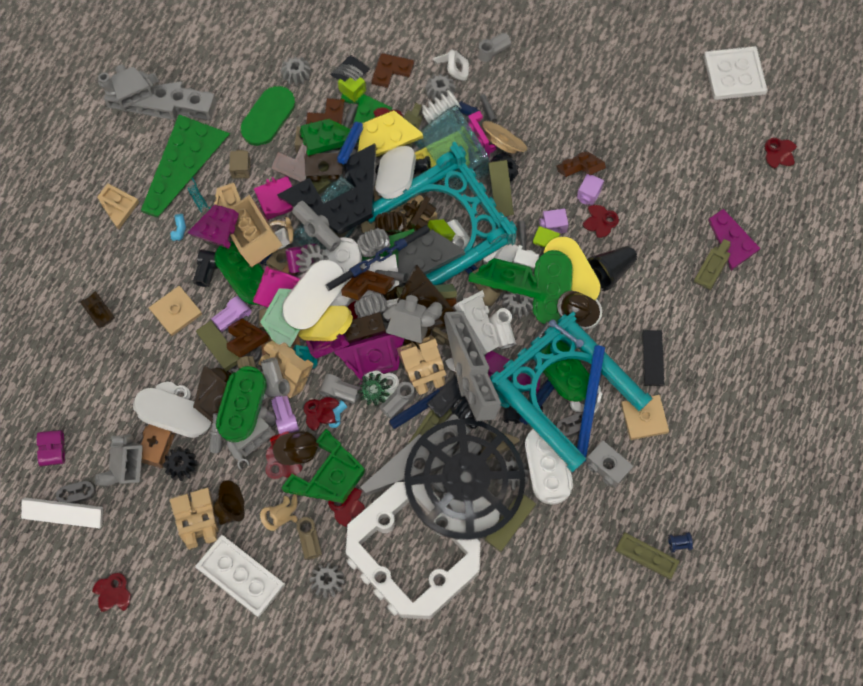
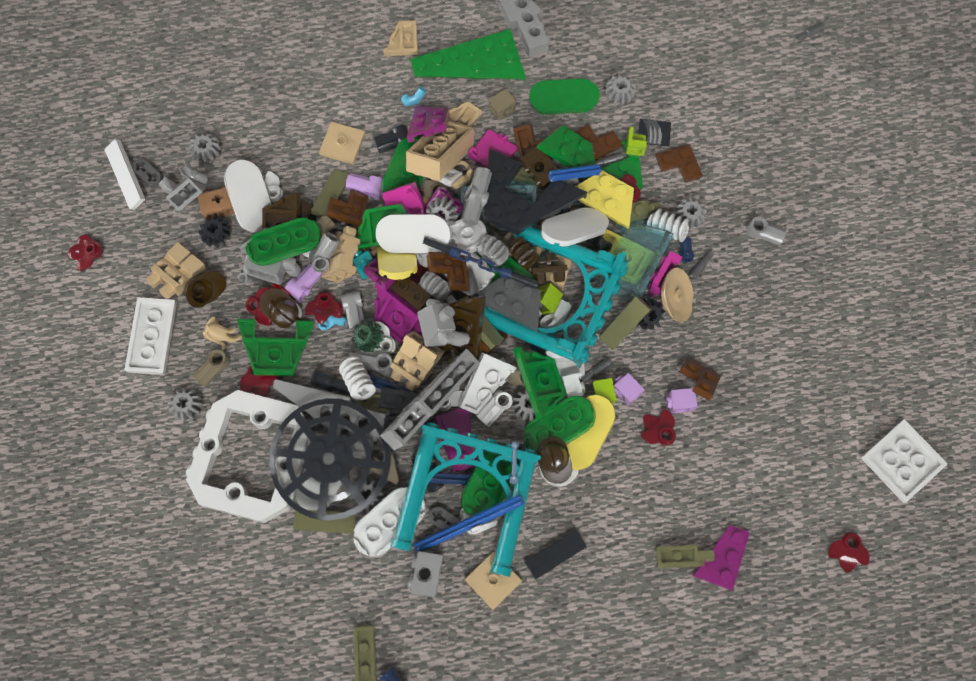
camera: 55 degrees right, 5 degrees up
(50, 448) = (171, 131): magenta piece -> none
(97, 310) = (302, 86): dark brown hips -> none
(98, 430) = (212, 147): none -> light grey gear
(200, 196) = (455, 93): teal piece -> none
(393, 444) = (329, 382): none -> black pin
(408, 418) = (356, 378): none -> white piece
(453, 57) = (714, 209): white piece -> none
(612, 265) = (618, 464): black cone -> none

